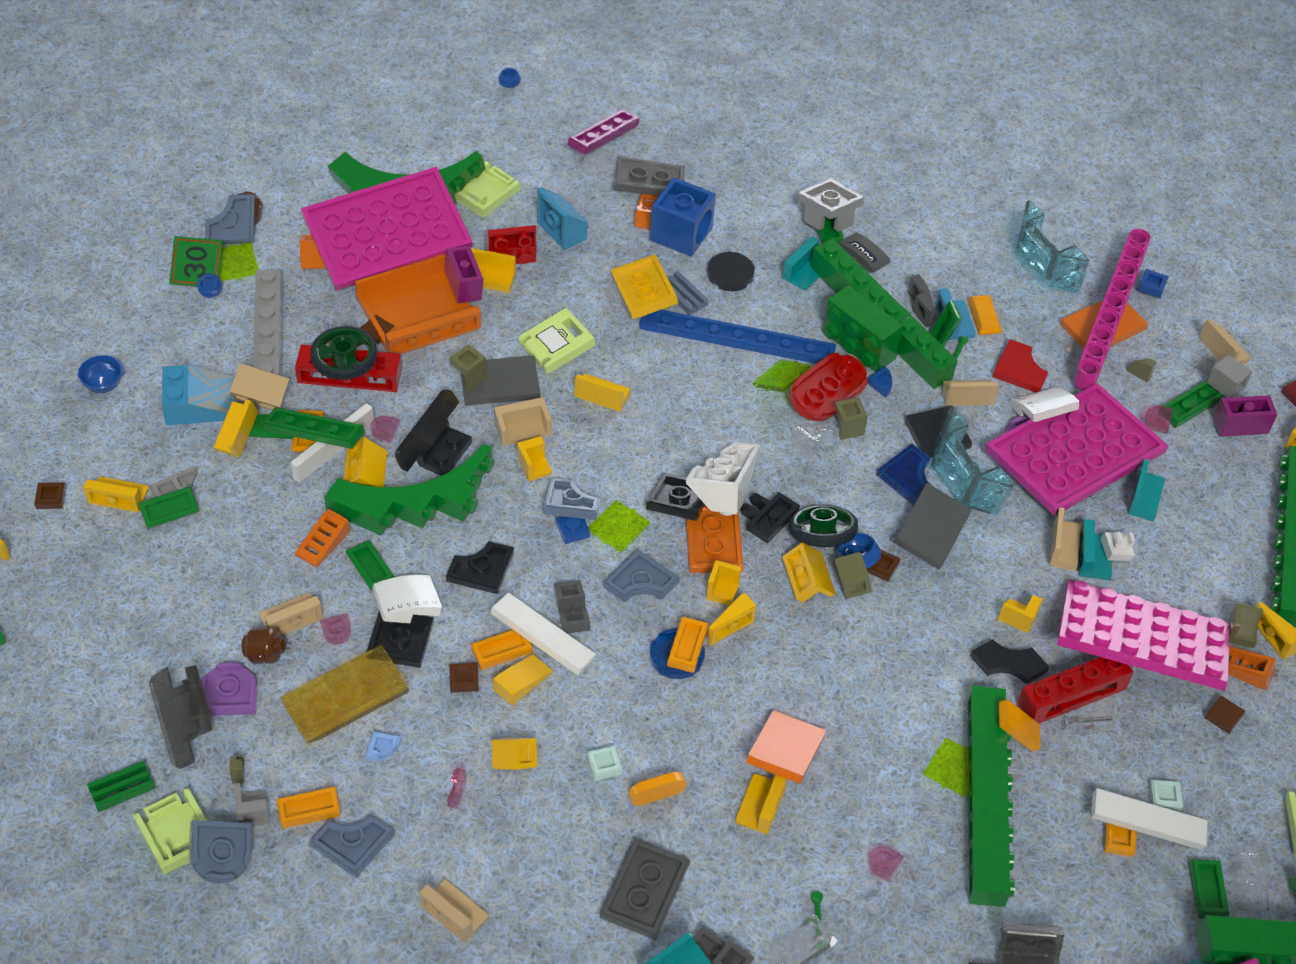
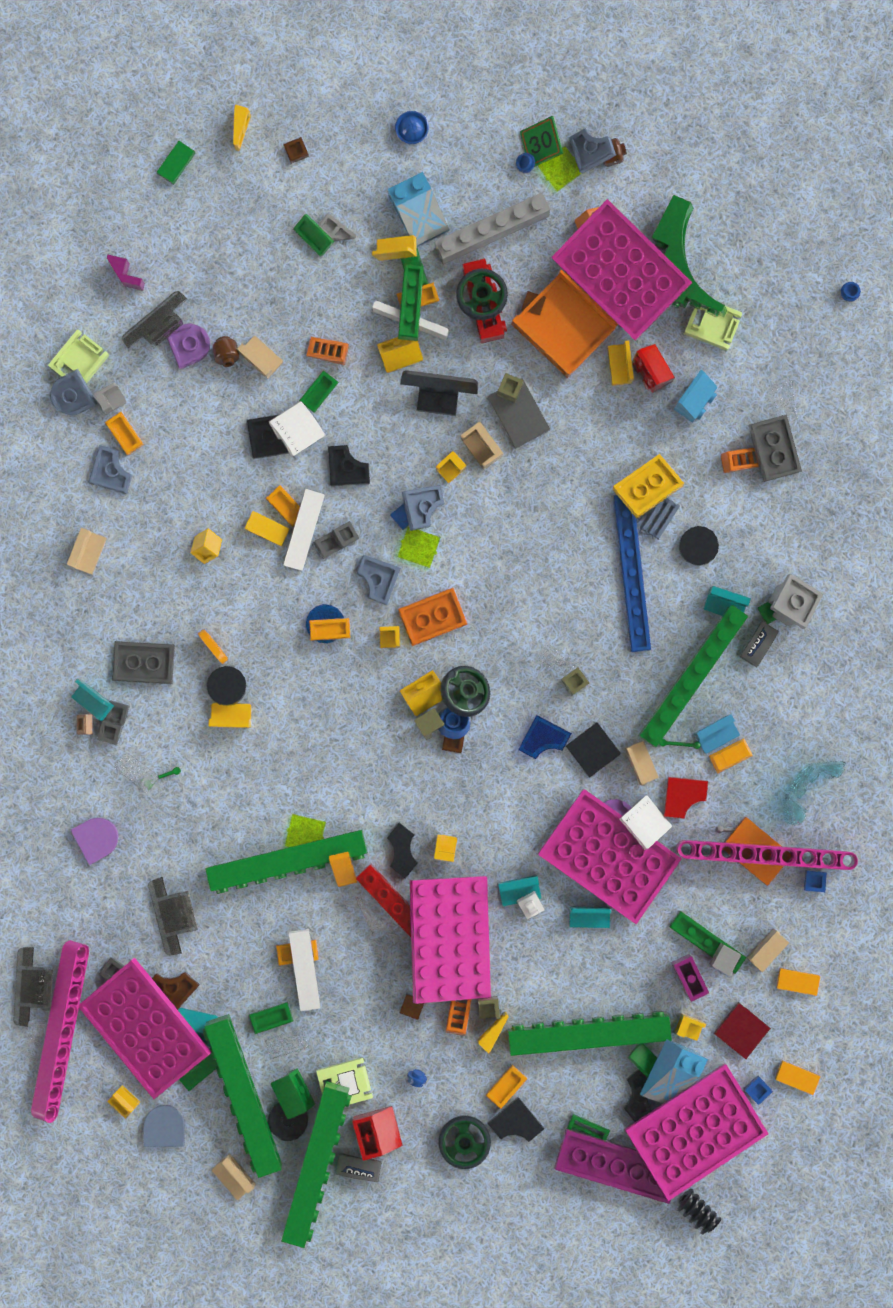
camera: 75 degrees right, 35 degrees up
(79, 733) = (121, 268): none -> magenta slope
(115, 493) = (315, 193): yellow panel -> none
(120, 781) = (84, 300): green tile -> none
(237, 769) = (133, 376): olive tile -> none
(259, 386) = (431, 248): tan panel -> none
(336, 629) = (260, 392): clear pink tile -> none
(344, 695) = (210, 420): clear yellow tile -> none
(381, 745) = (184, 459): light blue tile -> none
(384, 428) = (442, 349): clear pink tile -> none
(417, 504) = (397, 421): green arch -> none
(460, 782) = (168, 520): clear pink tile -> none
(463, 274) = (599, 347): magenta brick -> none
(464, 677) = (254, 490): reddish brown tile -> none
(554, 343) = (568, 437): yellowish green container -> none
(601, 392) = (536, 491): yellow panel -> none
(603, 132) = (811, 393): magenta tile -> none
(604, 763) = (223, 605): light aqua tile -> none
(675, 498) = (455, 581): black tile -> none
(682, 216) = (728, 491): blue brick -> none
(718, 792) = (226, 685): none -> black tile
(726, 479) = (476, 608): white wedge -> none
(734, 618) = (368, 655): yellow slope -> none
(771, 515) = (464, 652): black hinge -> none
(781, 375) = (600, 618): clear neon green piece -> none
(786, 746) = (270, 719): tile -> none
(827, 382) = (601, 657): red tile -> none
(862, 328) = (663, 665): green brick -> none
(881, 381) = (628, 695): blue tile -> none
(884, 862) = (216, 806): clear pink tile -> none
(923, 300) = (716, 705): dark grey slope -> none
(932, 526) = (498, 768): dark grey tile -> none
(946, 323) = (693, 728): green tile -> none
(962, 475) = (572, 759): clear light blue slope -> none
(1065, 543) = (520, 867): tan panel -> none
(1142, 368) = (715, 890): olive tile -> none
(1158, 418) = (668, 912): clear pink tile -> none
(1166, 794) = (332, 977): light aqua tile -> none
(1267, 332) = (798, 981): none -> light orange tile

